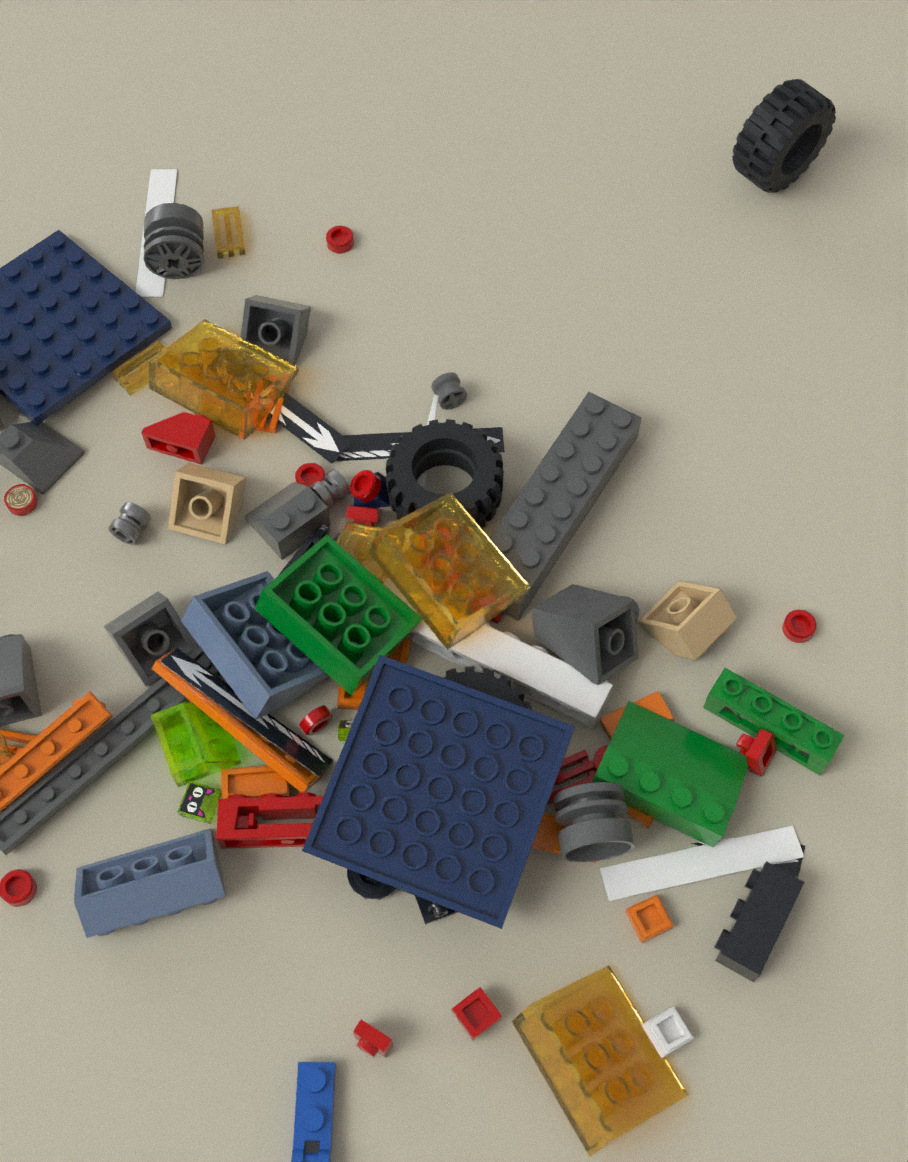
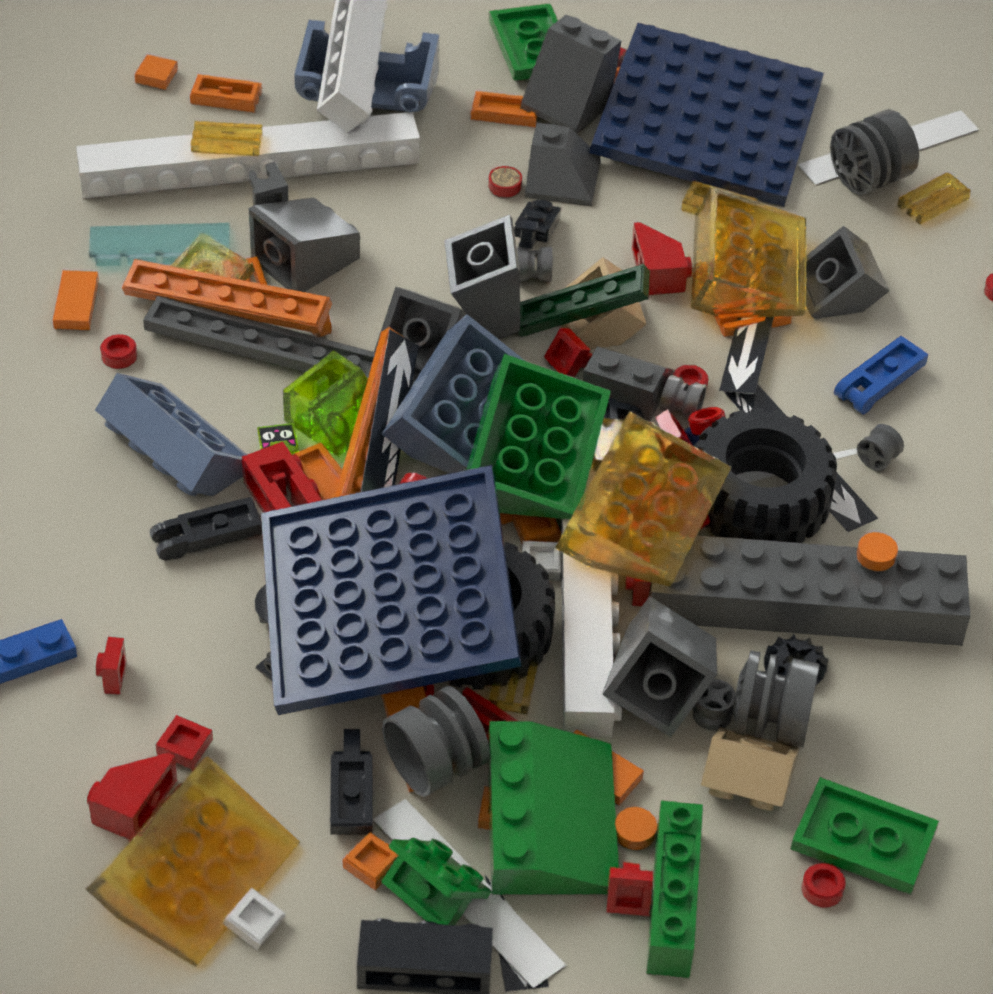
camera: 60 degrees right, 15 degrees down
(90, 500) = (536, 223): none -> black hinge
(148, 558) = (487, 275): none -> dark grey slope
(205, 508) = (584, 300): none -> dark green tile
(238, 546) = (568, 353): none -> red tile
(264, 897) = (206, 528): none -> black hinge
(379, 353) = (881, 374): none -> blue plate
(429, 660) = (545, 555): none -> white tile
(513, 1081) = (131, 793): none -> red slope
(566, 442) = (877, 551): none -> orange tile
(579, 902) = (351, 788): none -> black hinge
(596, 552) = (797, 649): none -> black gear
(652, 571) = (775, 698): none -> dark grey wheel
(697, 882) = (433, 880): none -> green bracket
(702, 720) = (635, 828): none -> orange tile
(774, 579) = (865, 835): none -> green plate

